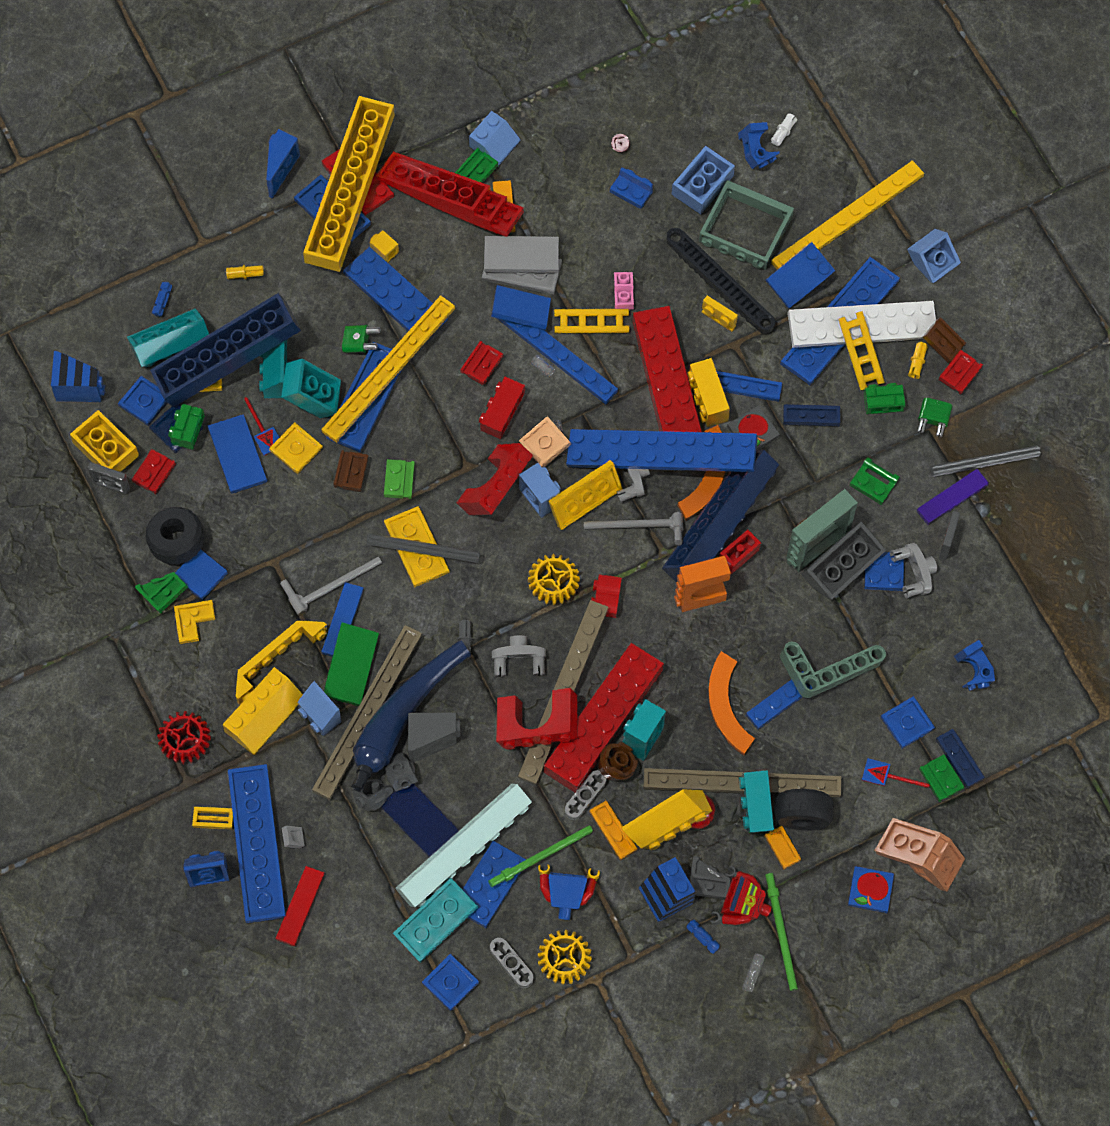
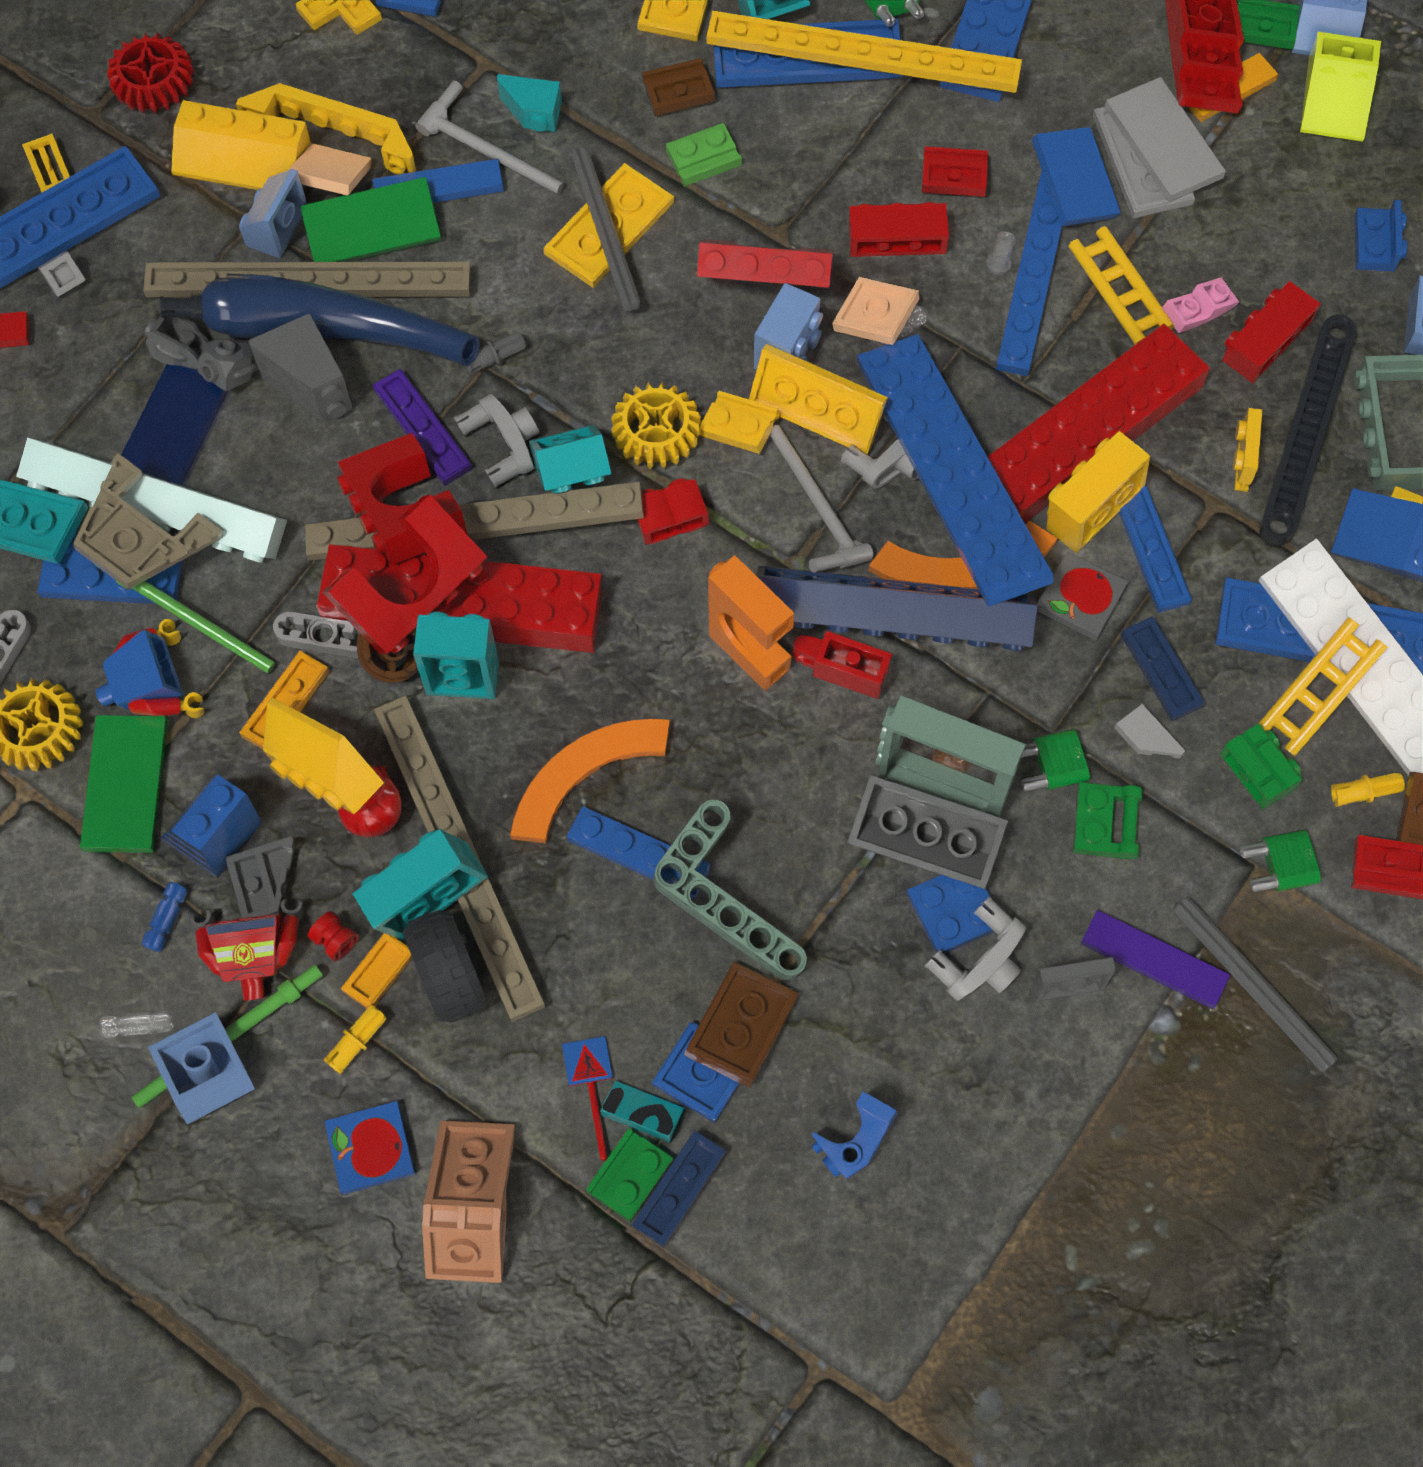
camera: 65 degrees right, 0 degrees up
(306, 668) = (331, 169): none -> light nougat tile
(319, 548) = (531, 101): none -> teal slope
(486, 694) = (417, 418): none -> dark purple tile
(492, 862) = (127, 541): none -> dark tan wing
(537, 157) = (1340, 86): none -> neon yellow slope
(556, 627) = (570, 458): none -> teal brick
(572, 539) = (739, 422): none -> yellow plate
(597, 706) = (451, 558): none -> red arch
(619, 927) = (124, 784): none -> green tile
(658, 267) = (1270, 331): none -> red brick
(756, 858) = (333, 936): none -> red wheel
(795, 947) = (201, 1068): none -> medium blue slope
(813, 871) = (355, 1039): none -> yellow axle
(831, 484) = (1059, 761): none -> green piece
(840, 440) = (1147, 735): none -> light grey tile
(894, 692) = (741, 1024): none -> reddish brown tile
(914, 758) = (641, 1111): none -> teal slope

